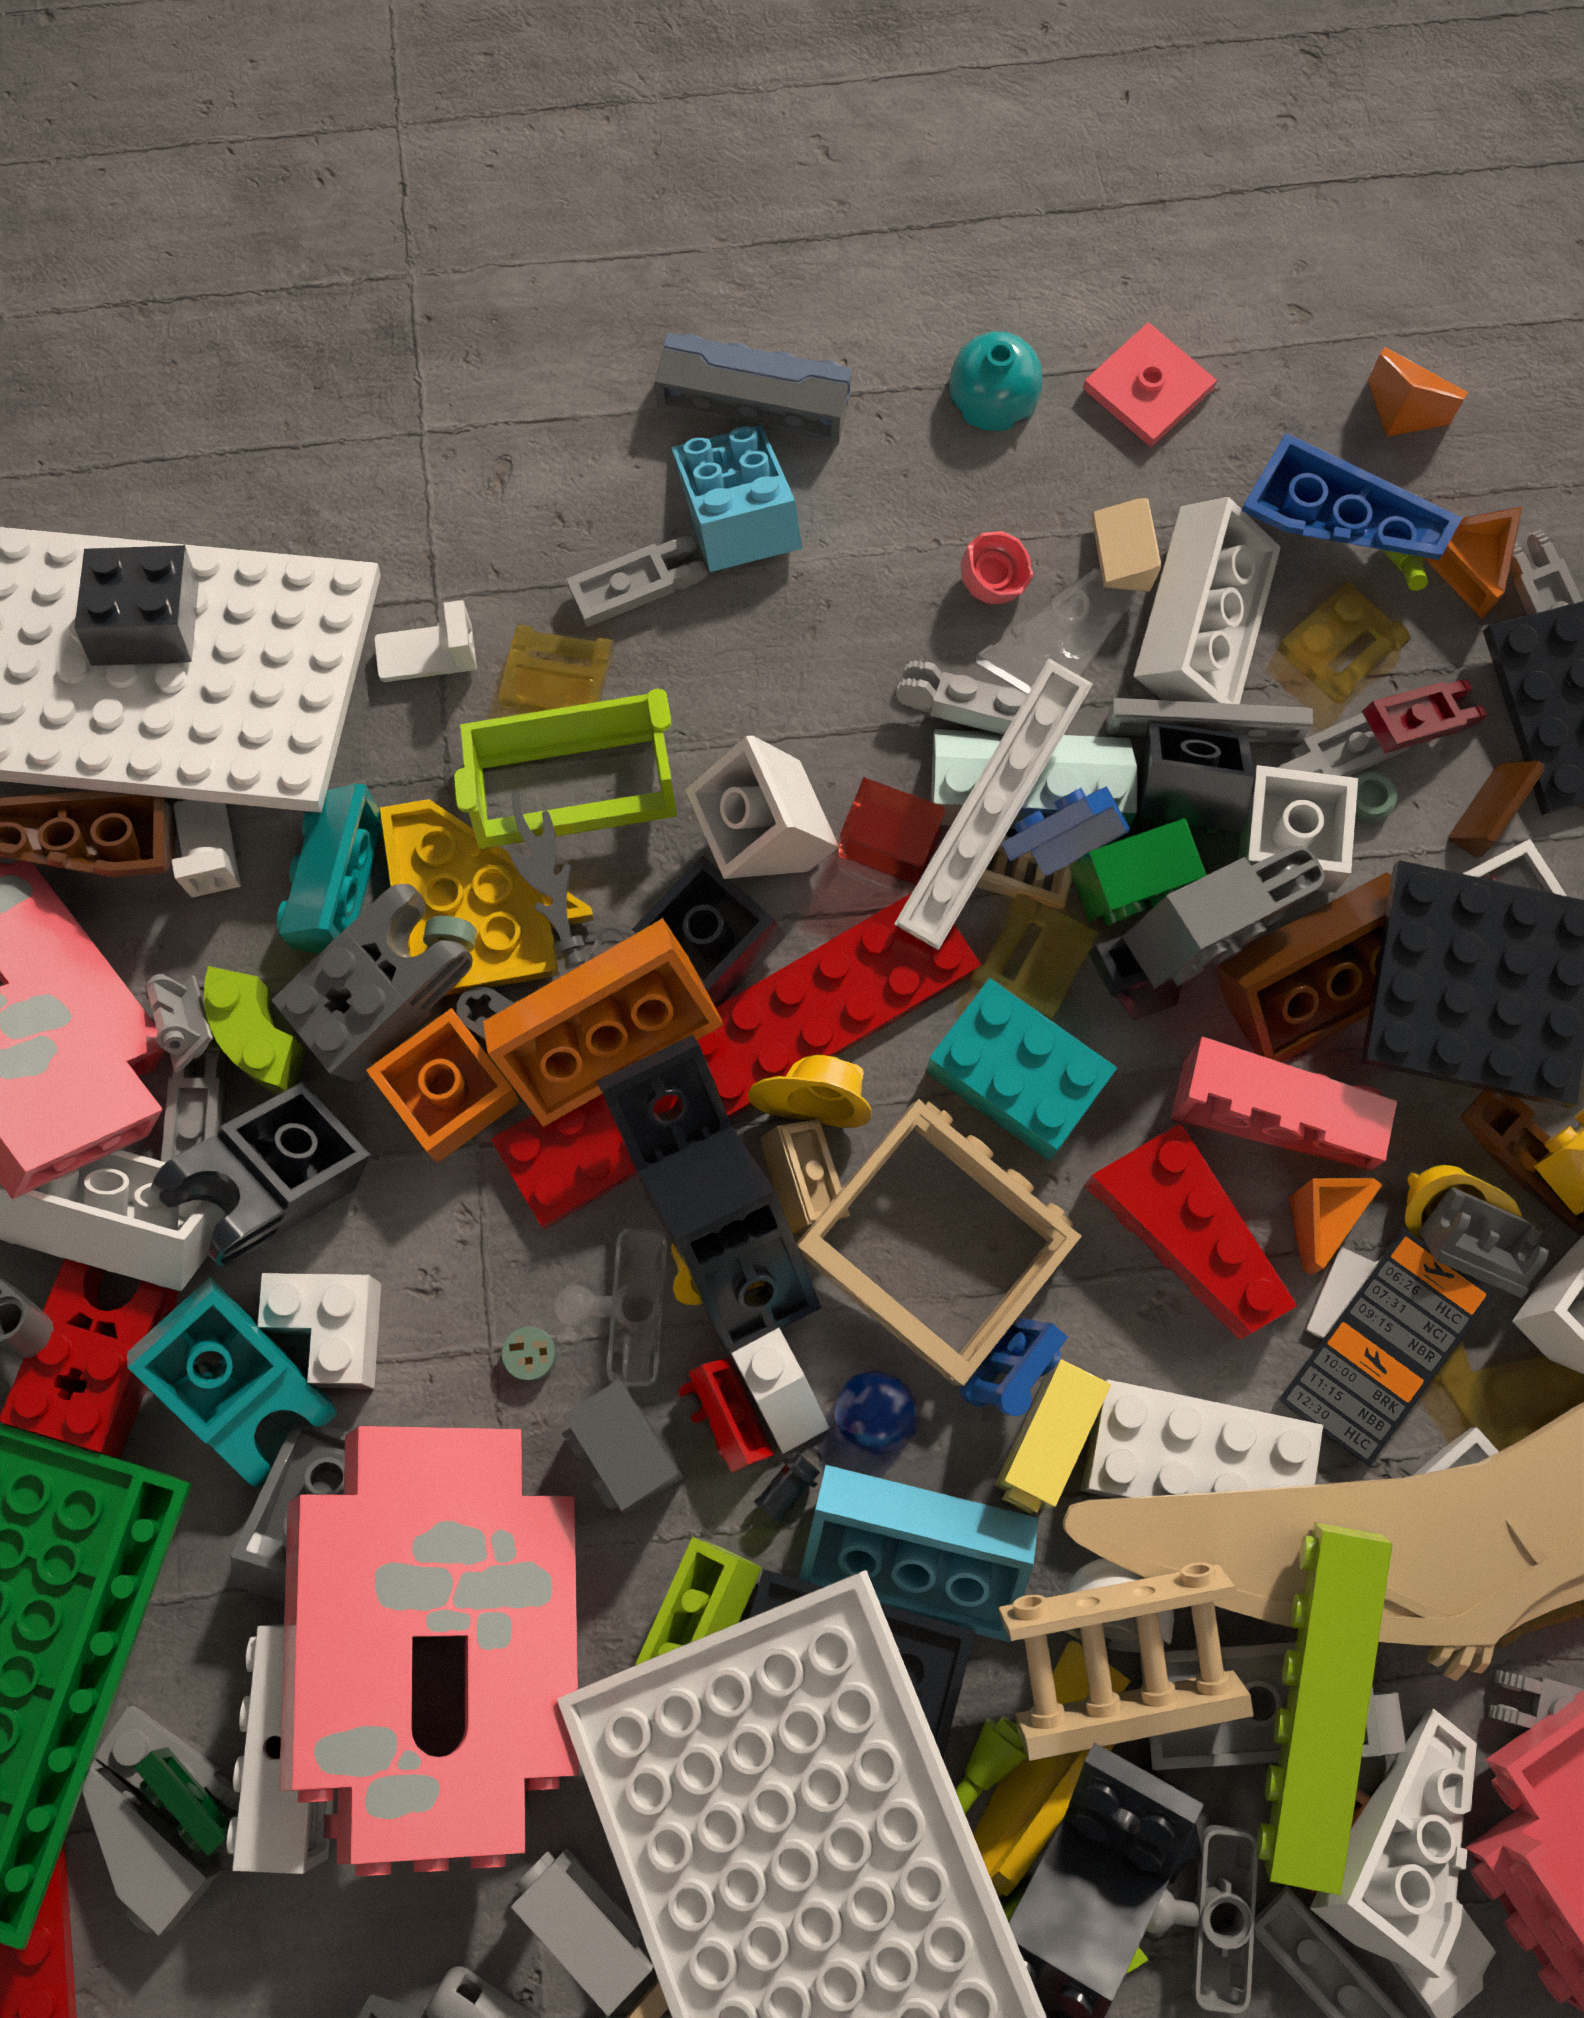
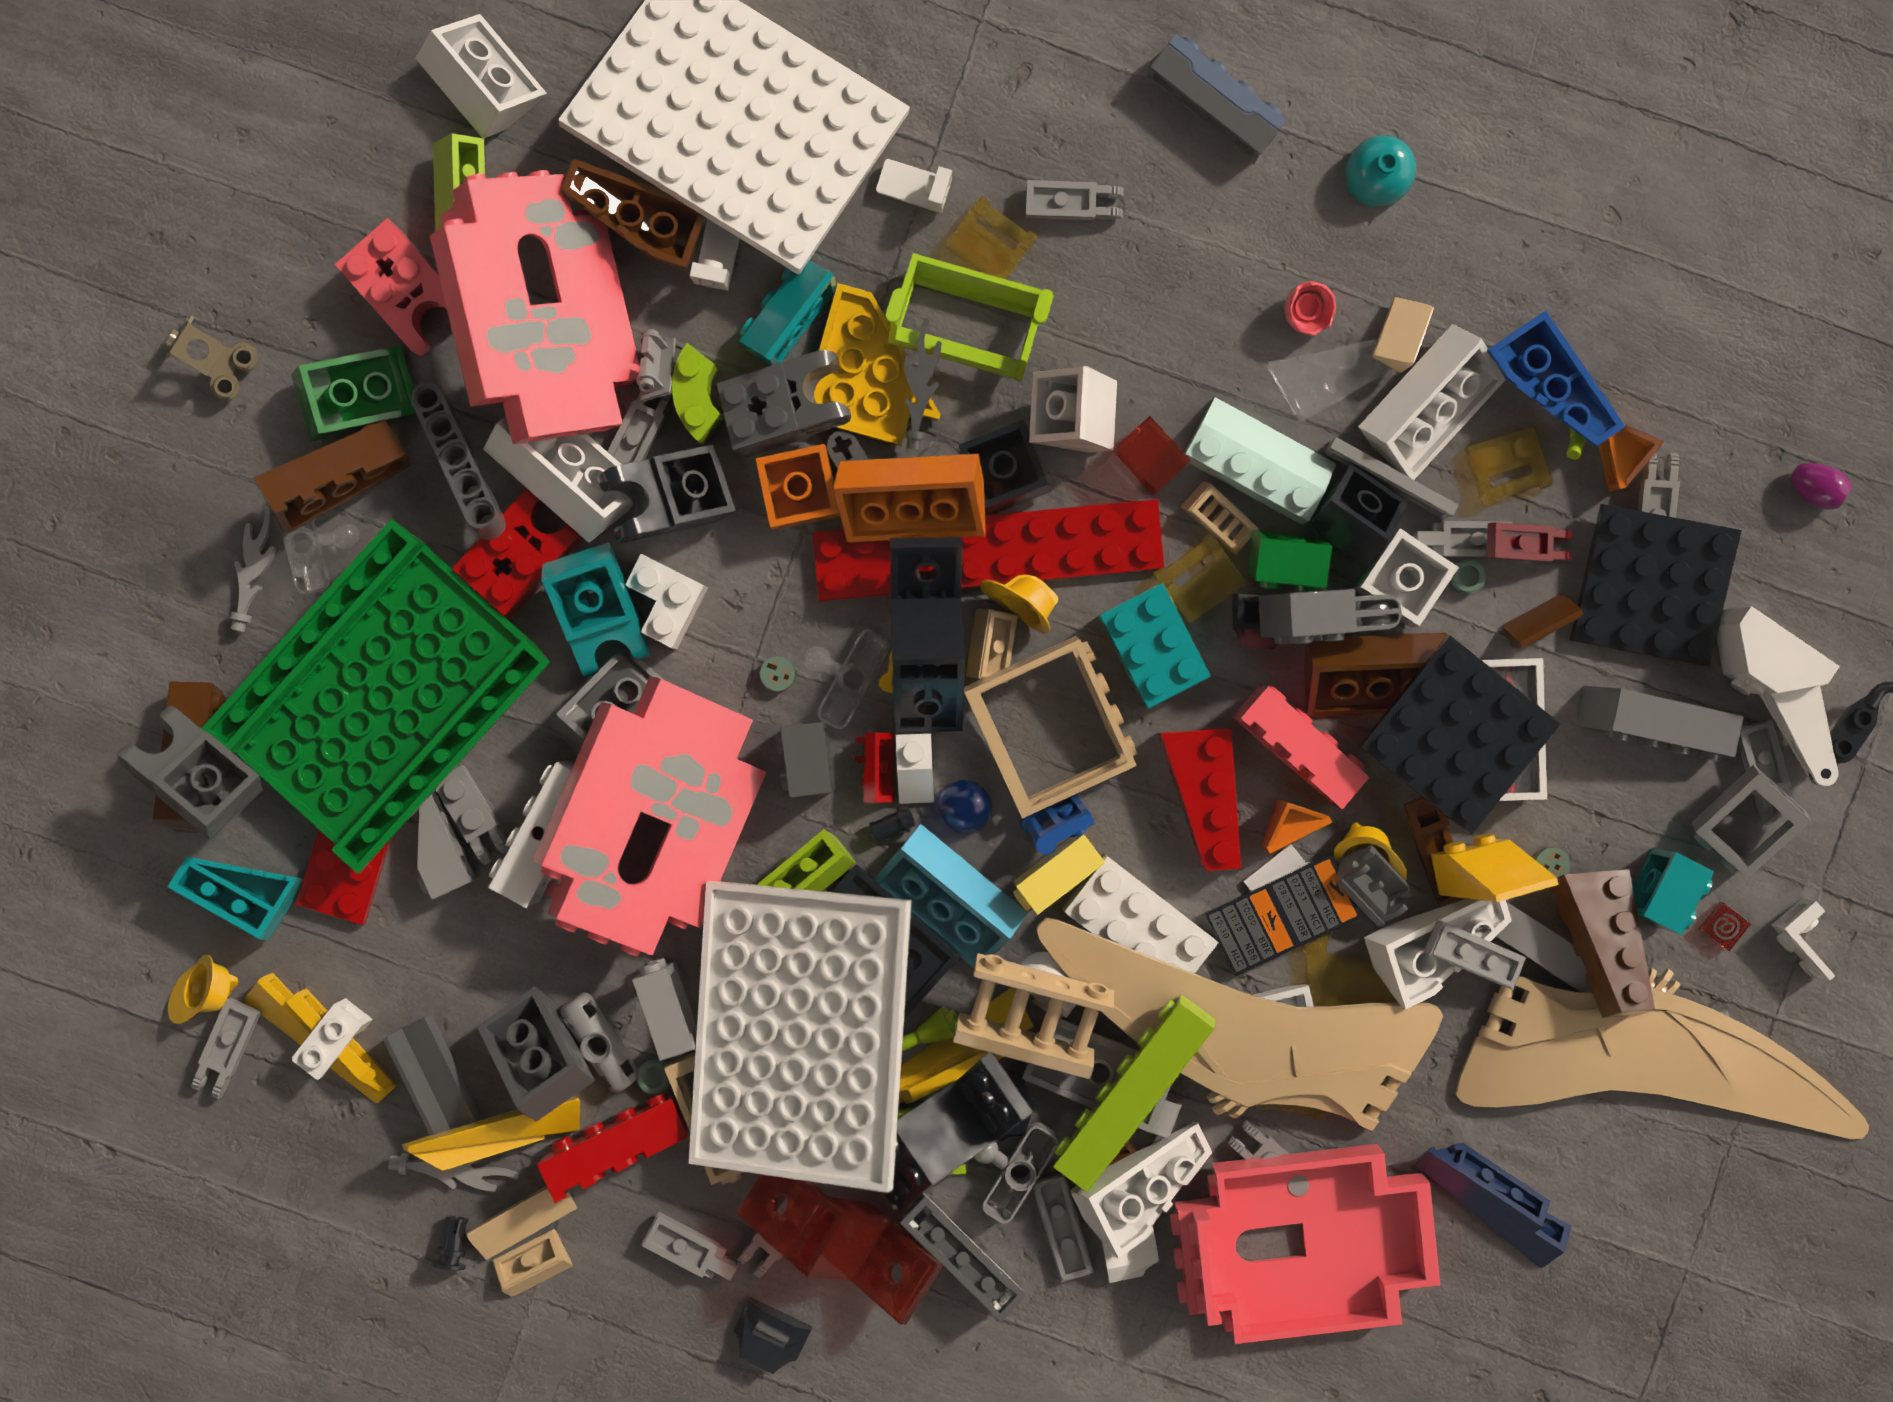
camera: 30 degrees right, 15 degrees up
(137, 605) = (741, 75): black brick -> none
(172, 1785) = (479, 849): dark green plate -> none
(450, 929) = (844, 393): sand green tile -> none
(737, 497) = (1167, 172): medium azure slope -> none
(958, 697) = (1244, 389): light grey hinge -> none
(993, 804) = (1221, 473): white tile -> none
(1067, 835) = (1258, 514): blue bracket -> none
(1149, 384) = (1482, 221): coral plate -> none
(1411, 396) = (1649, 317): orange slope -> none

